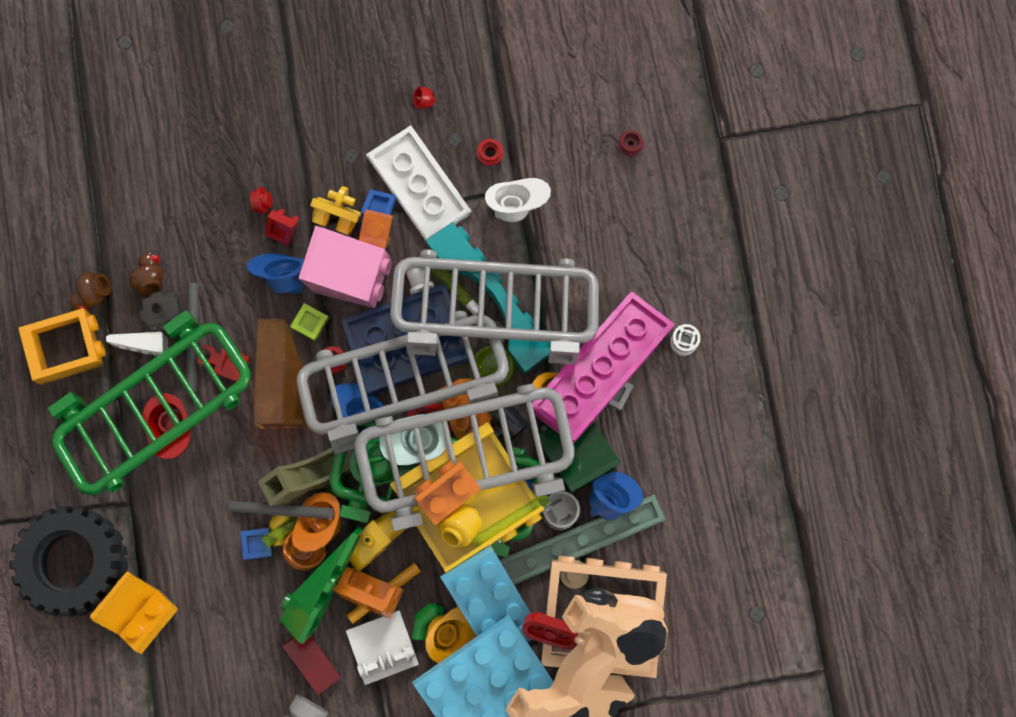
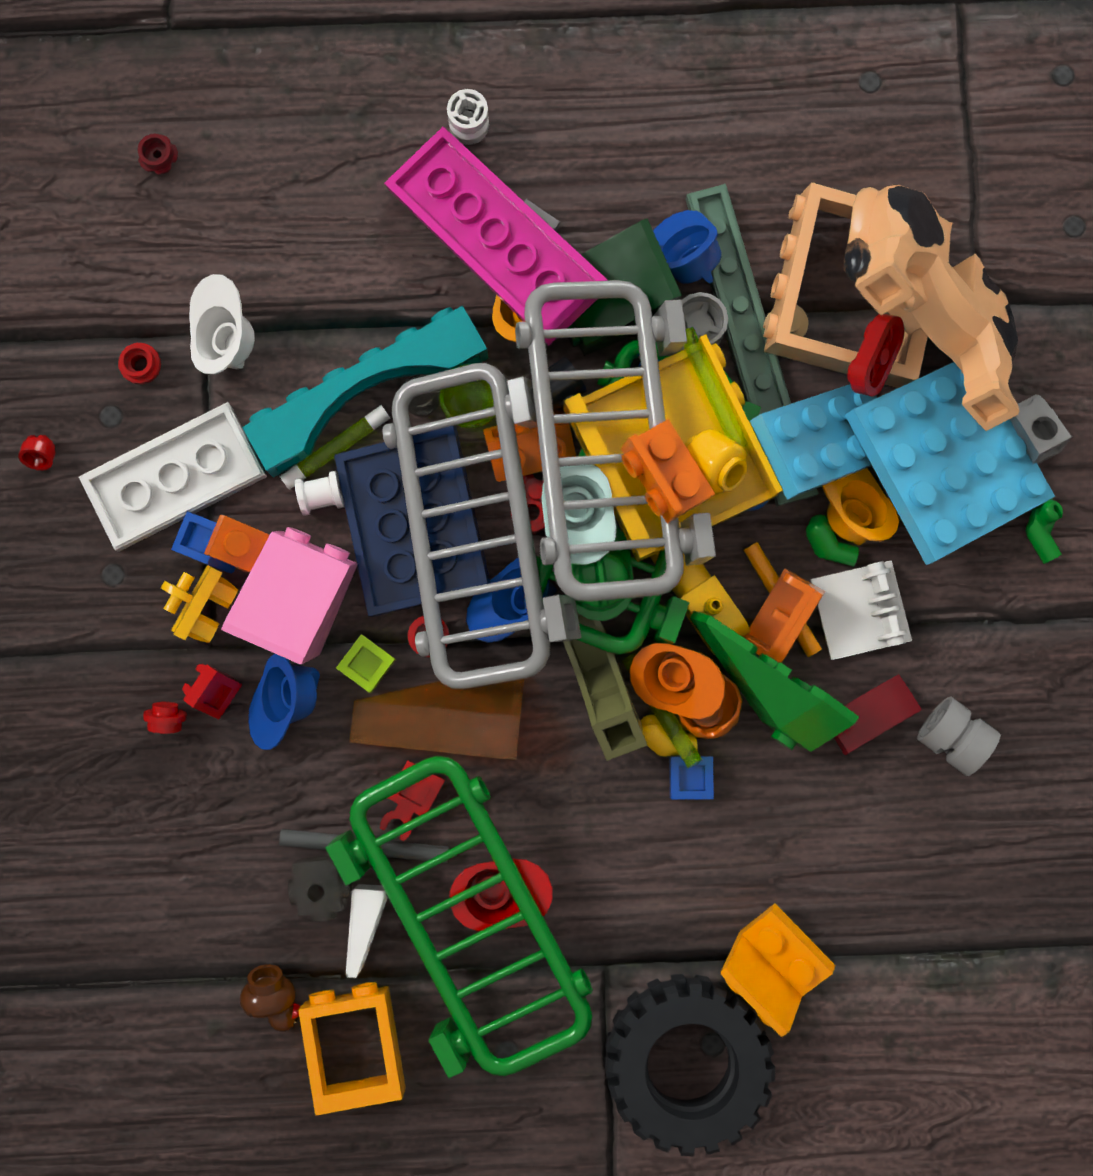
camera: 85 degrees left, 5 degrees up
(148, 276) = (260, 903): reddish brown animal -> none
(281, 510) = (650, 727): dark grey bar -> none
(423, 335) = (418, 480): light grey bar -> none

